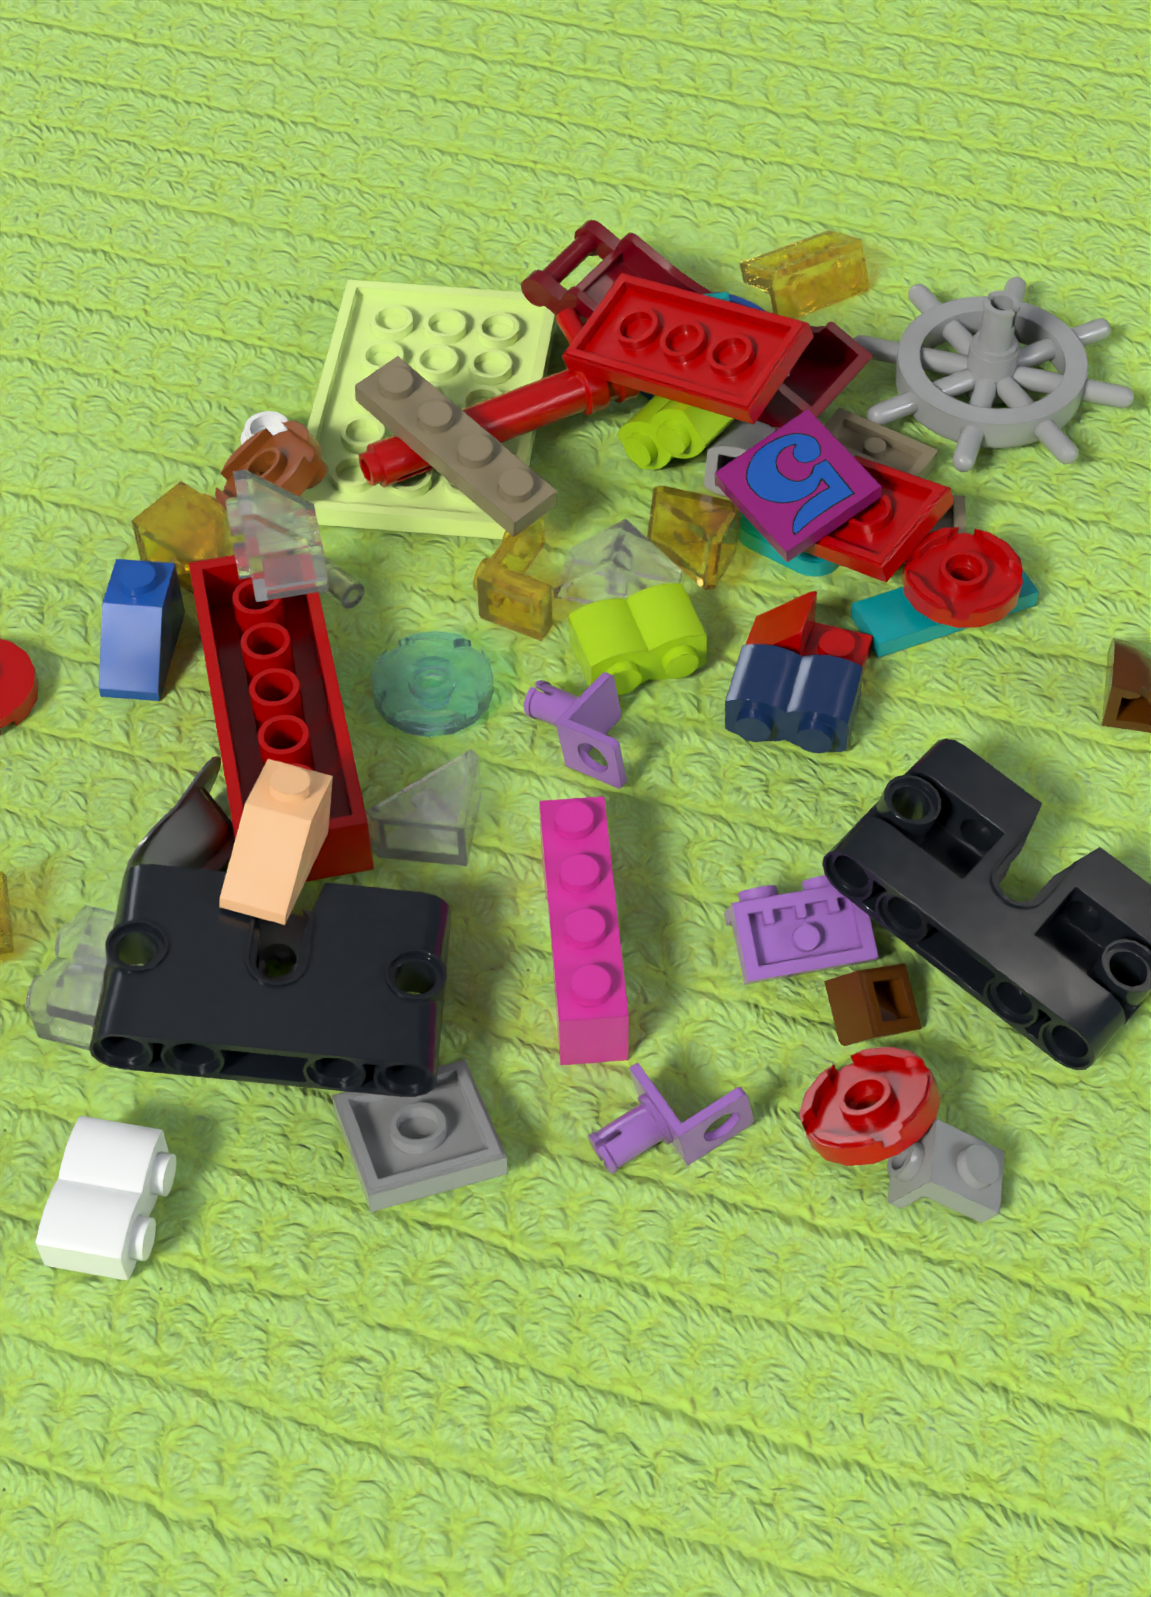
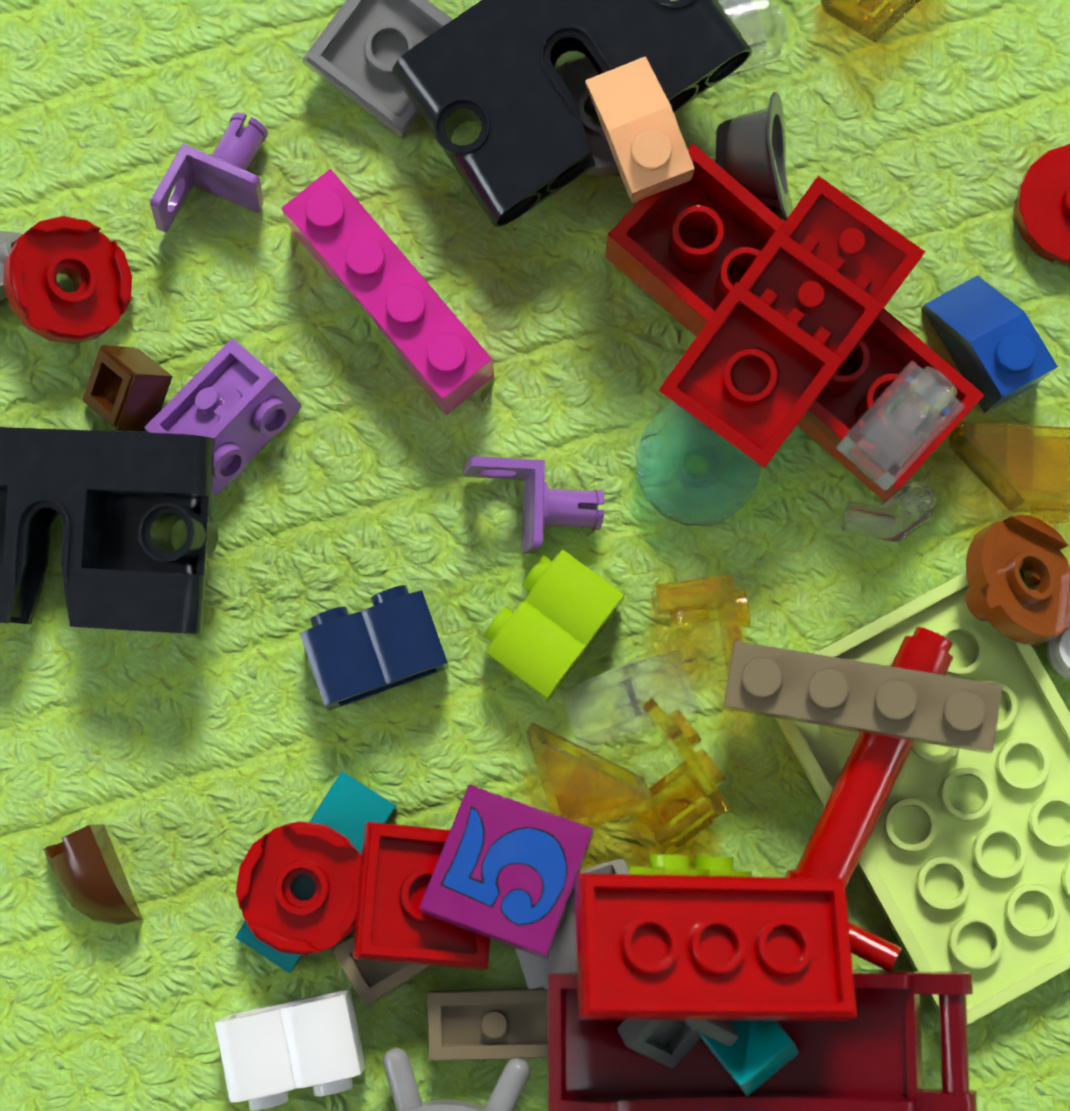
camera: 145 degrees right, 30 degrees up
(284, 667) = (791, 321): none -> red slope
(430, 817) = (583, 322): clear slope -> none
(627, 490) = (688, 795): none -> clear yellow bracket
(795, 629) = (406, 728): red slope -> none
(1038, 508) = (291, 1048): none -> white brick

